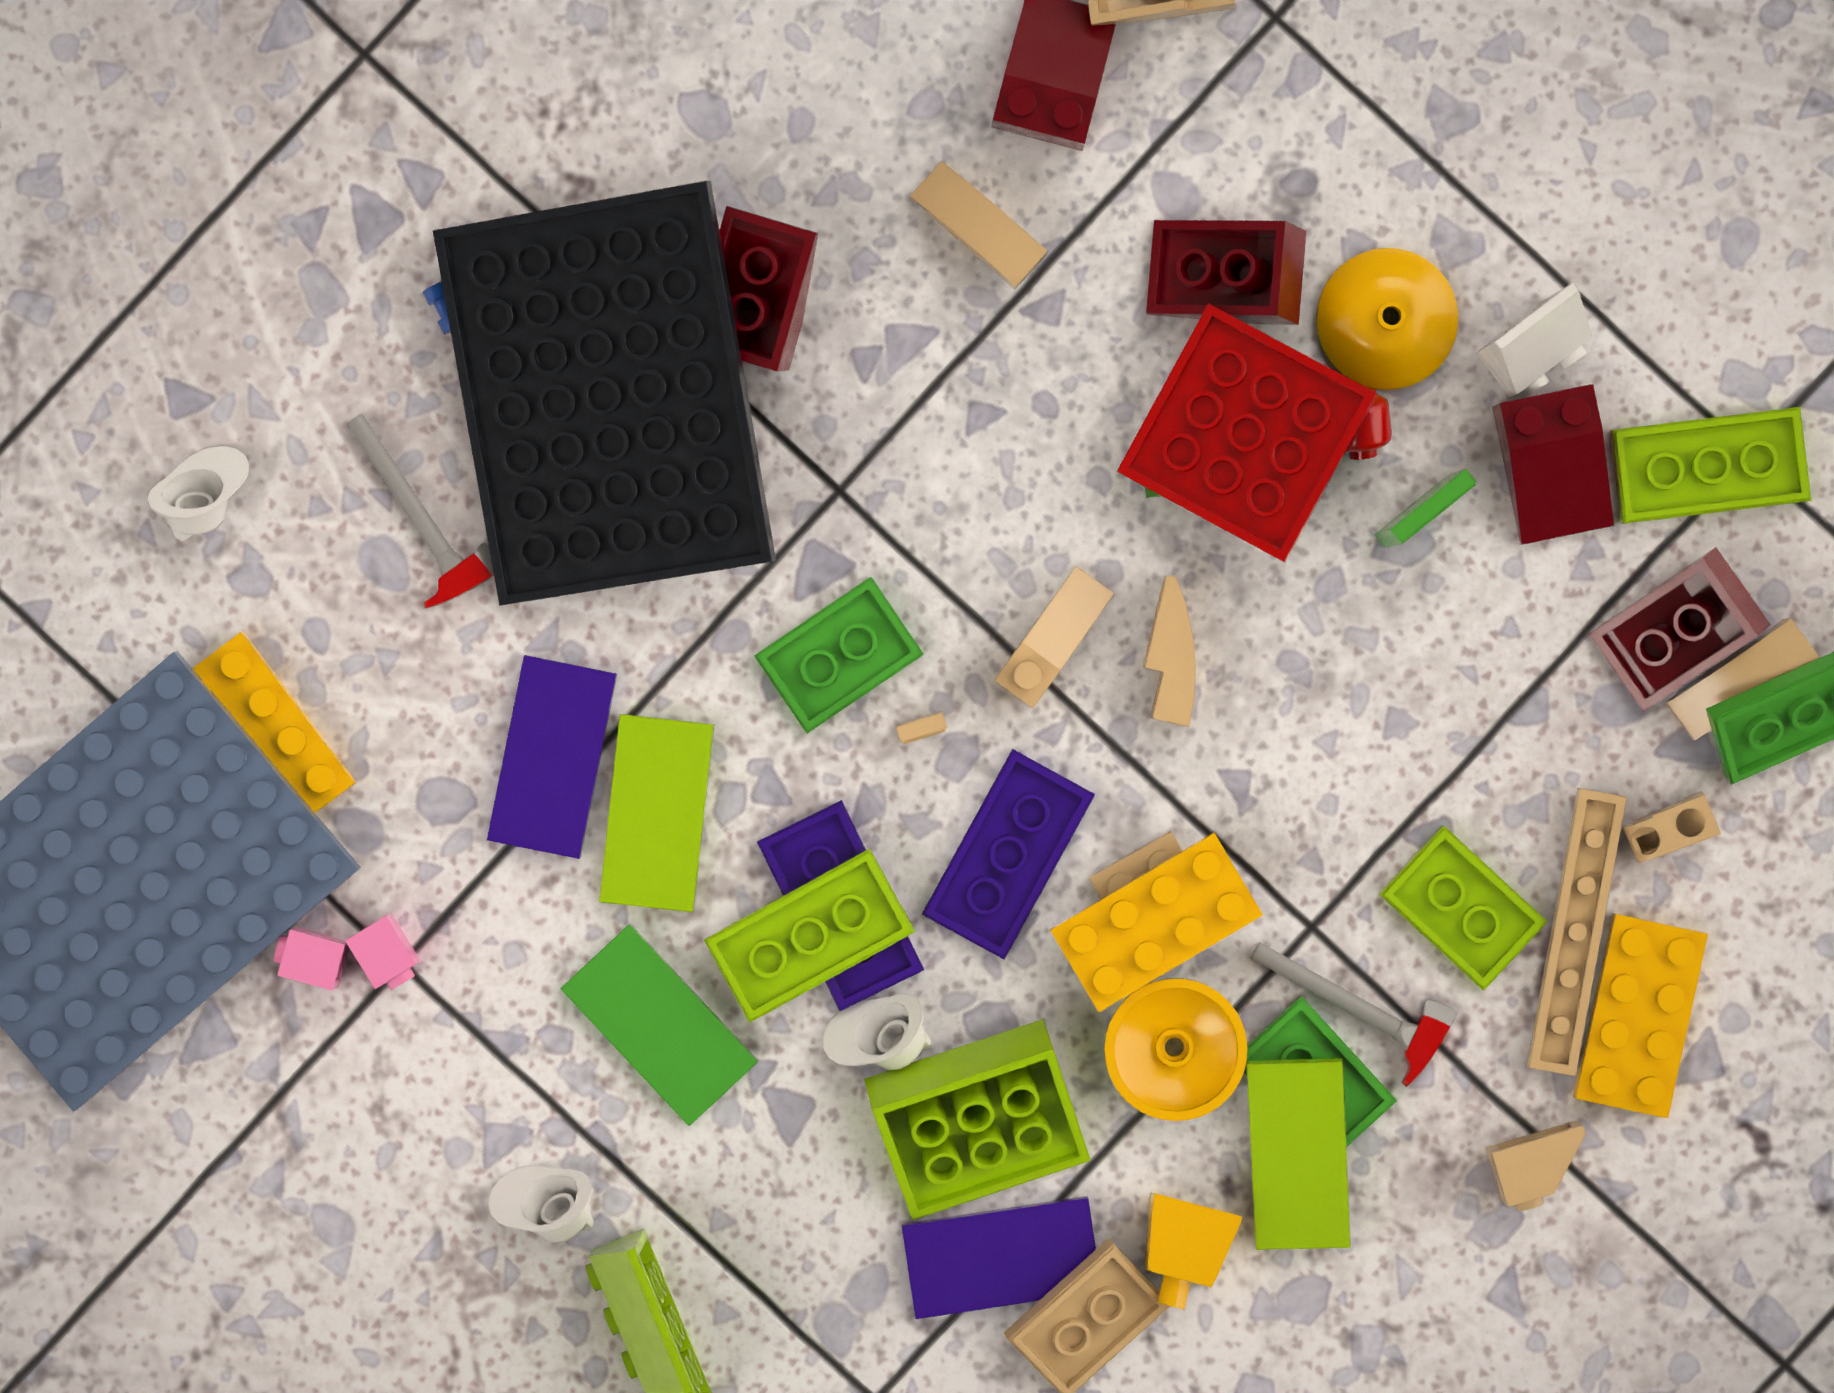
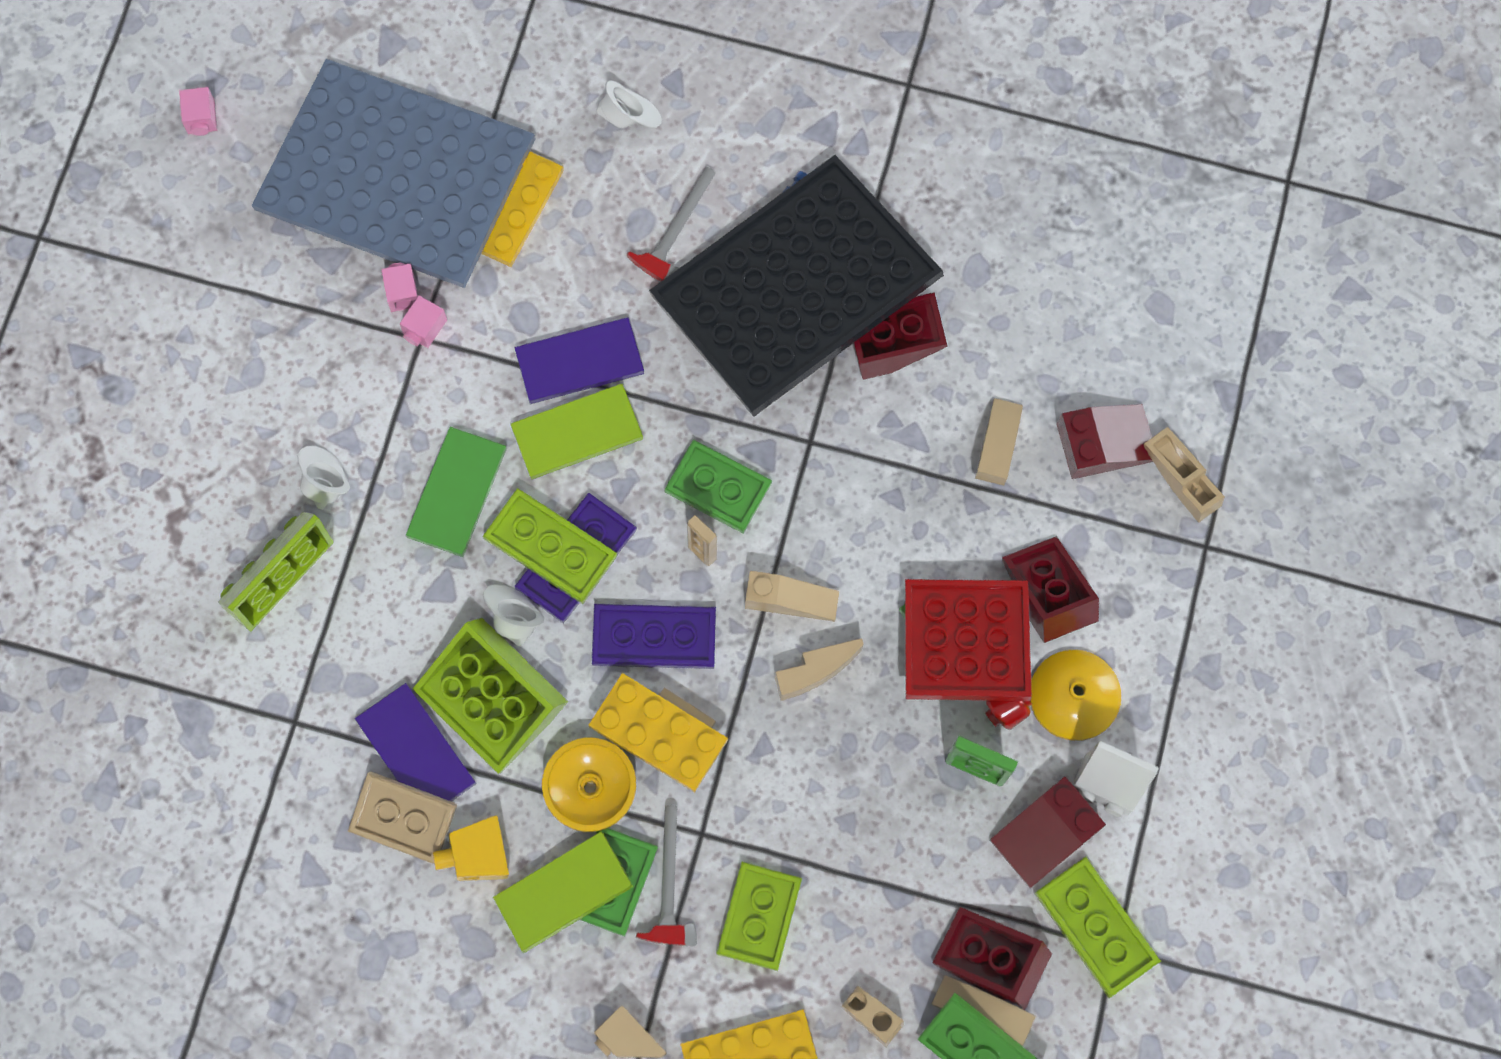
camera: 60 degrees right, 15 degrees down
(1576, 931) = (780, 990): tan plate -> none

